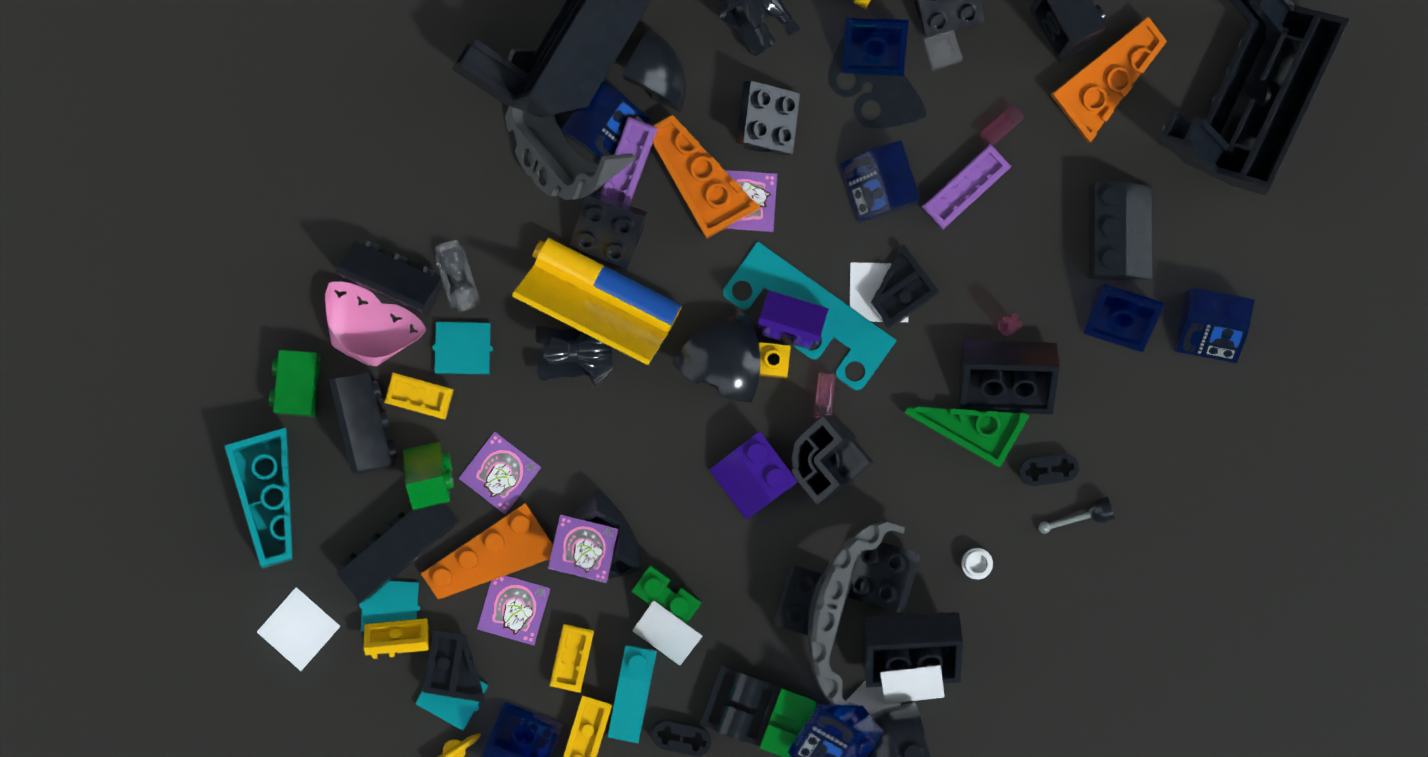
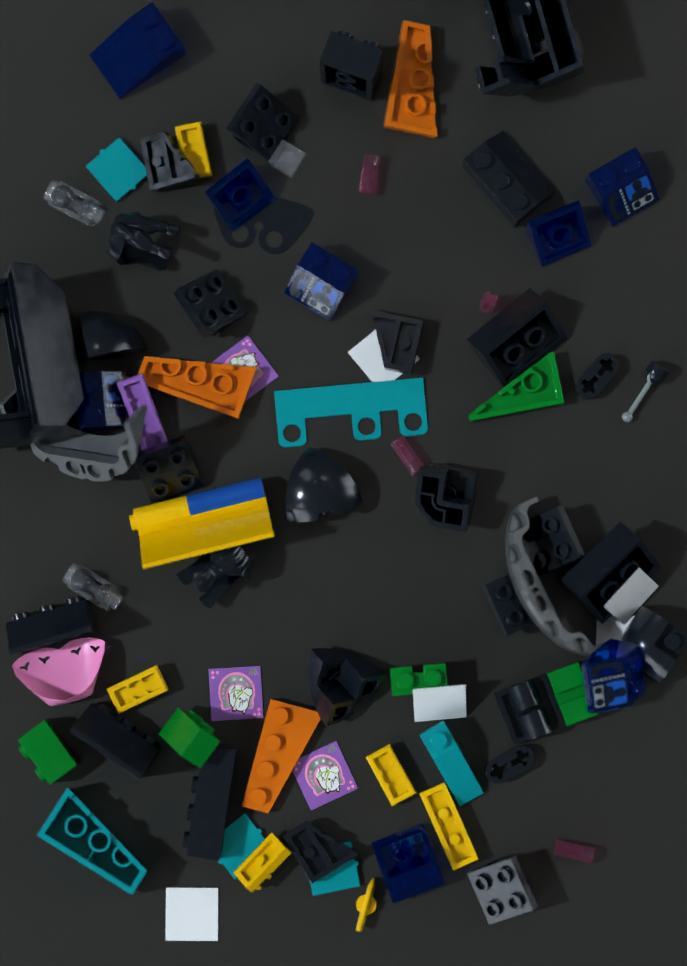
camera: 30 degrees left, 0 degrees up
(462, 348) = (139, 632): teal piece -> none
(583, 548) = (336, 695): sticker -> none
(753, 475) = (406, 549): dark purple slope -> none
(779, 370) = (363, 462): yellow plate -> none
(792, 319) = (342, 422): dark purple slope -> none
(966, 187) = (381, 236): medium lavender plate -> none
(977, 563) = (603, 479): white plate -> none

